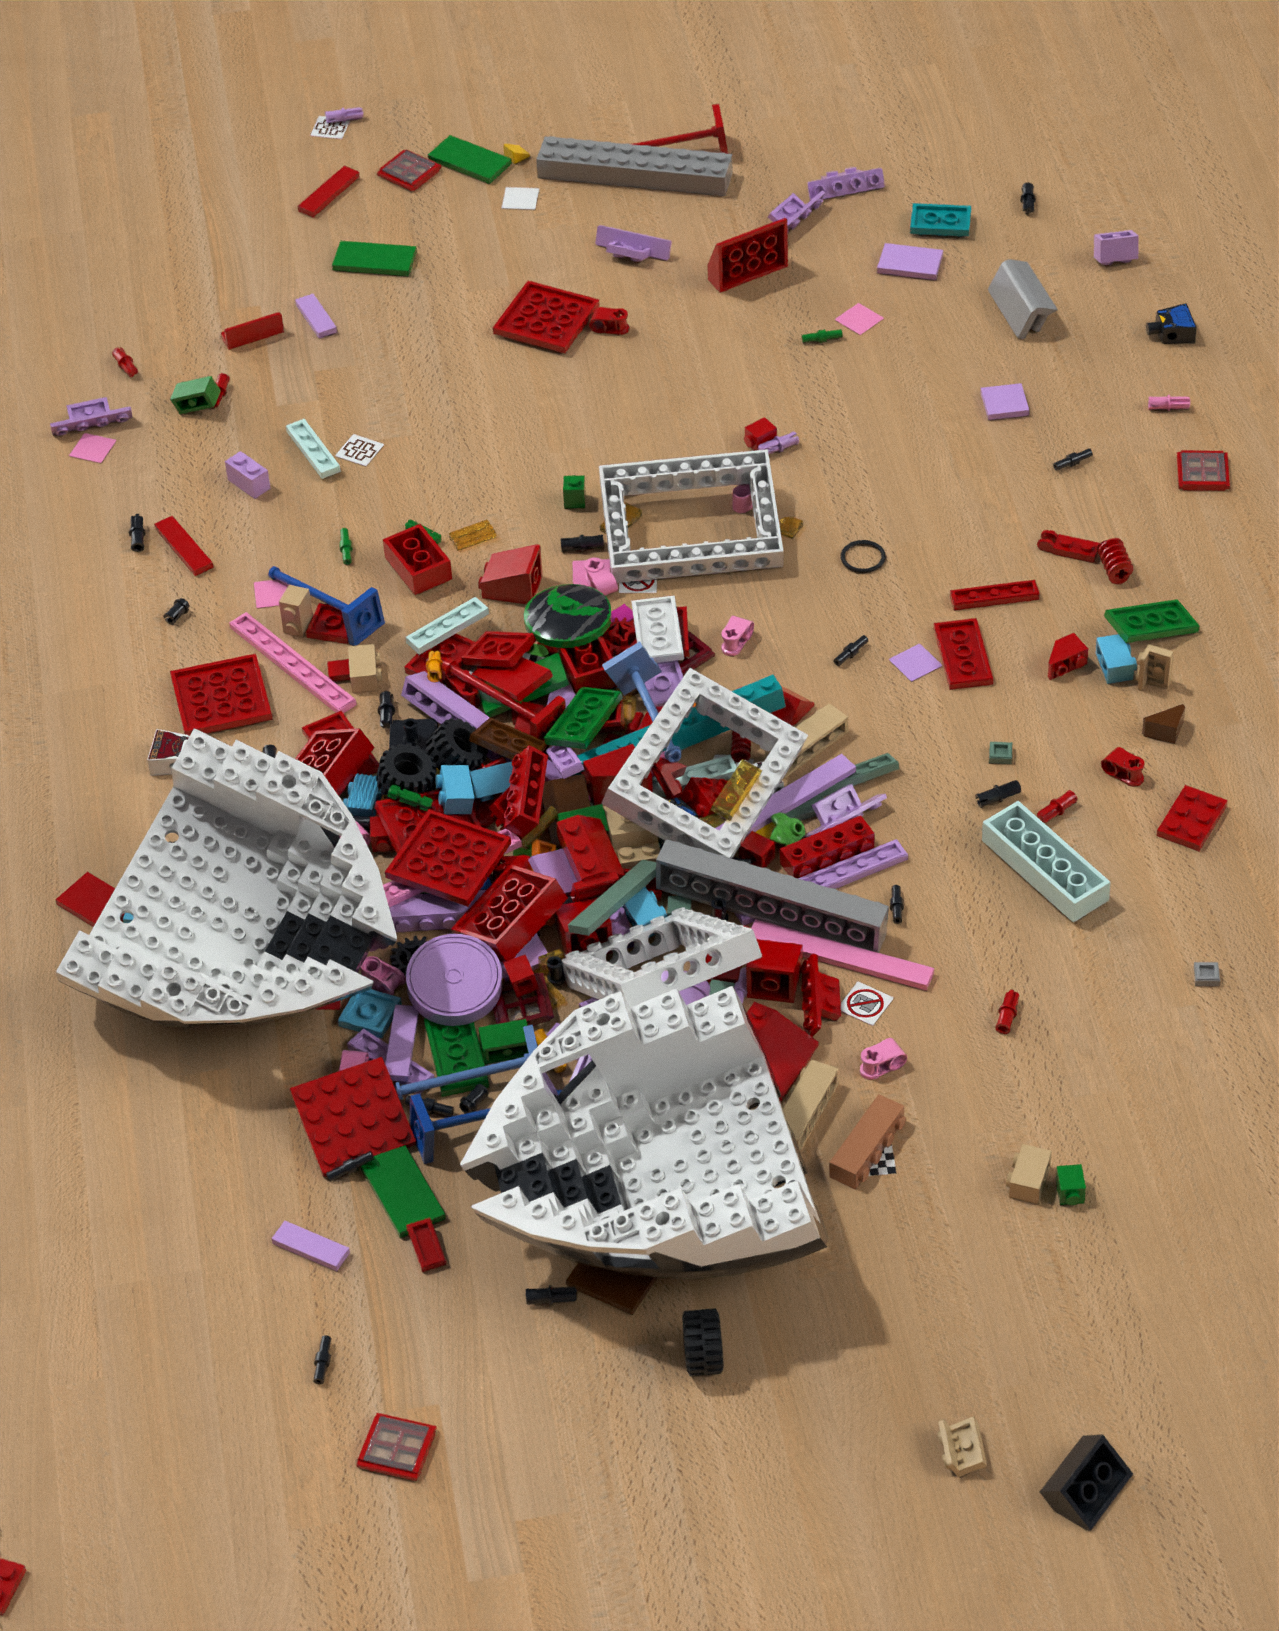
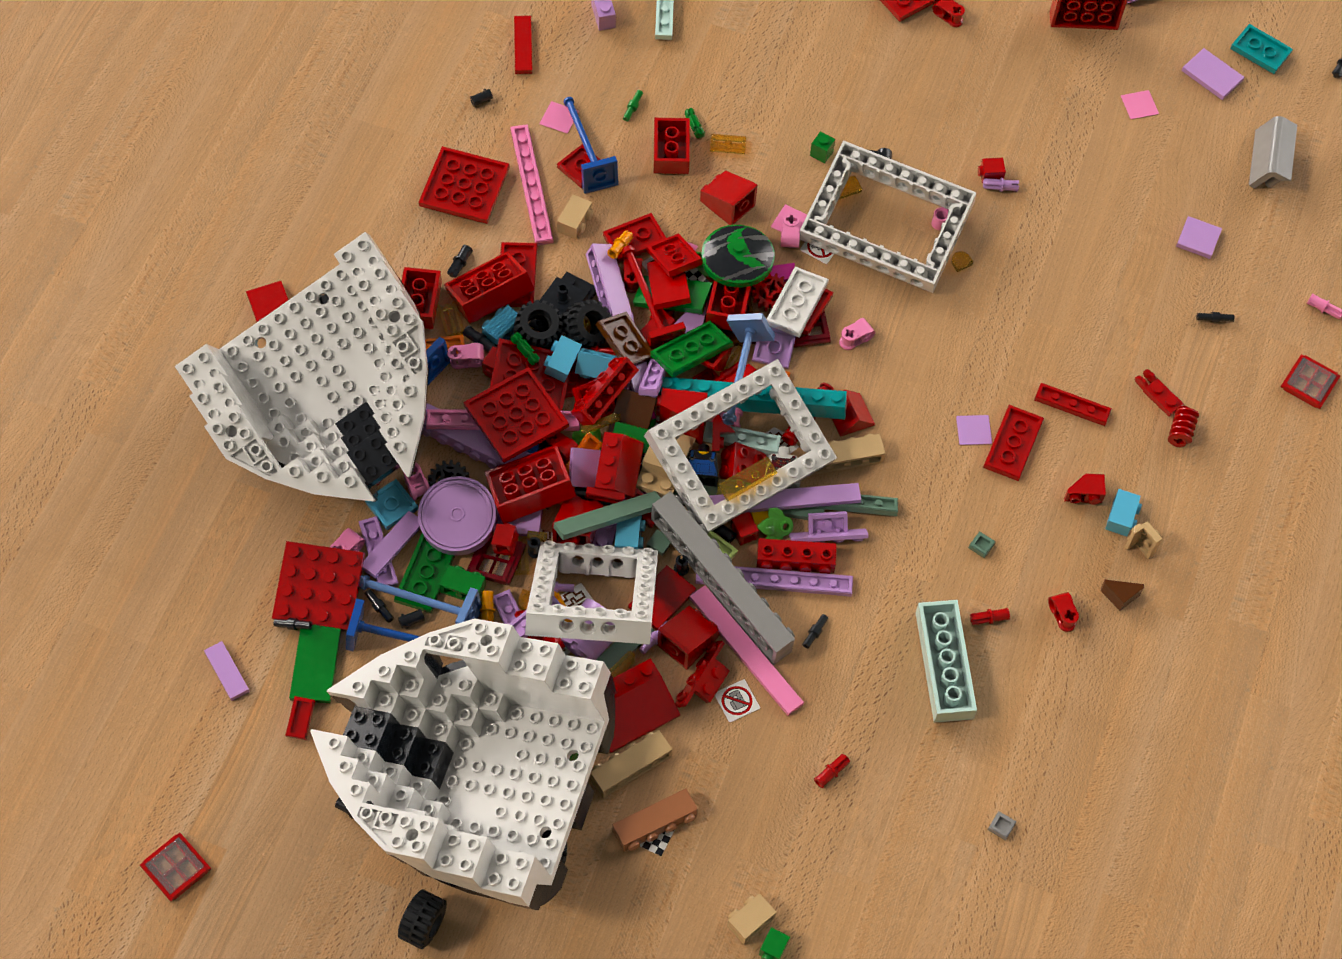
camera: 25 degrees right, 15 degrees up
(137, 533) = (497, 17): black axle -> none
(165, 751) = (398, 215): torso -> none
(295, 610) = (556, 144): tan brick -> none
(322, 1359) = (173, 767): black bar -> none
(338, 670) = (556, 207): red tile -> none
(359, 450) = (698, 27): white sticker -> none
(386, 709) = (567, 260): black axle -> none
(447, 625) = (653, 214): light aqua plate -> none
(582, 543) = (799, 193): black pin -> none
(821, 335) = (1099, 105): green bar -> none
(851, 650) = (932, 393): black bar -> none
(863, 570) = (998, 330): black tyre -> none
(882, 1059) = (714, 756): bright pink piece -> none
(998, 793) = (954, 580): black axle -> none
(1151, 621) = (1173, 496): green tile -> none
(1192, 818) = (1086, 684): red plate -> none

